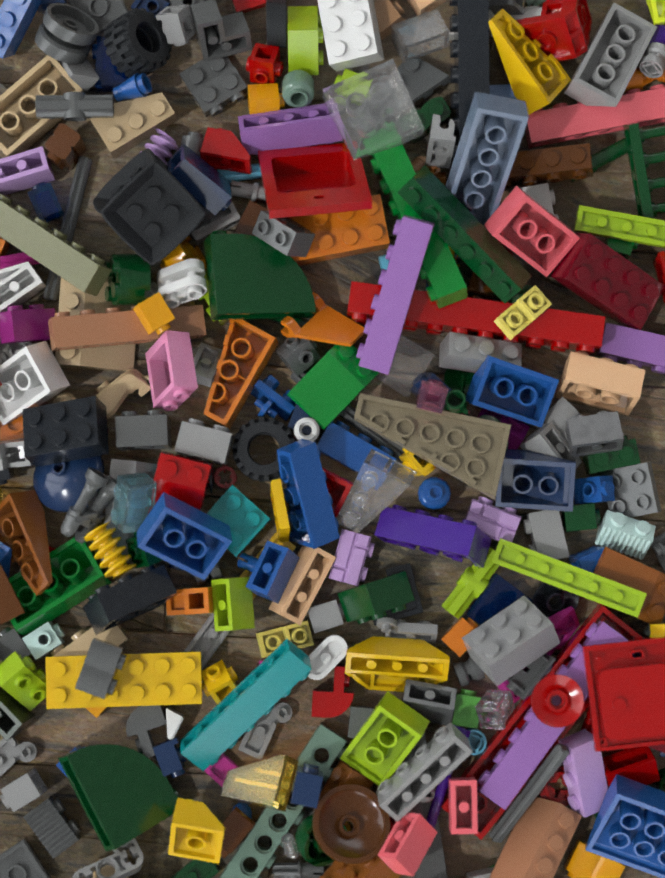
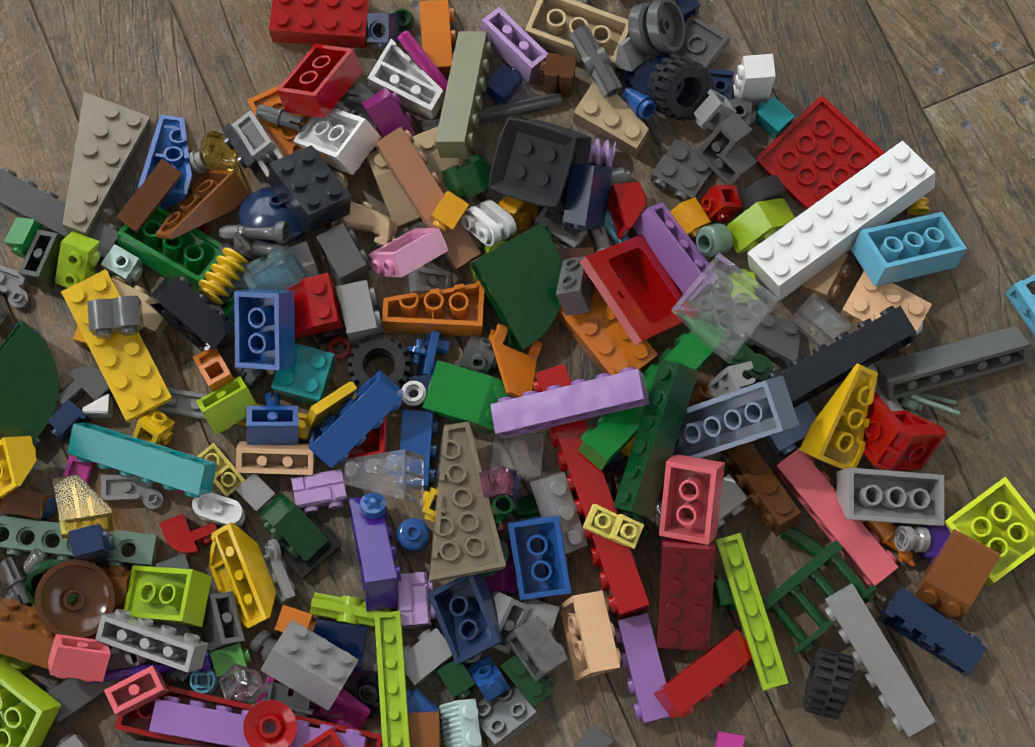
camera: 70 degrees right, 10 degrees down
(393, 516) = (373, 505): none -> blue tile

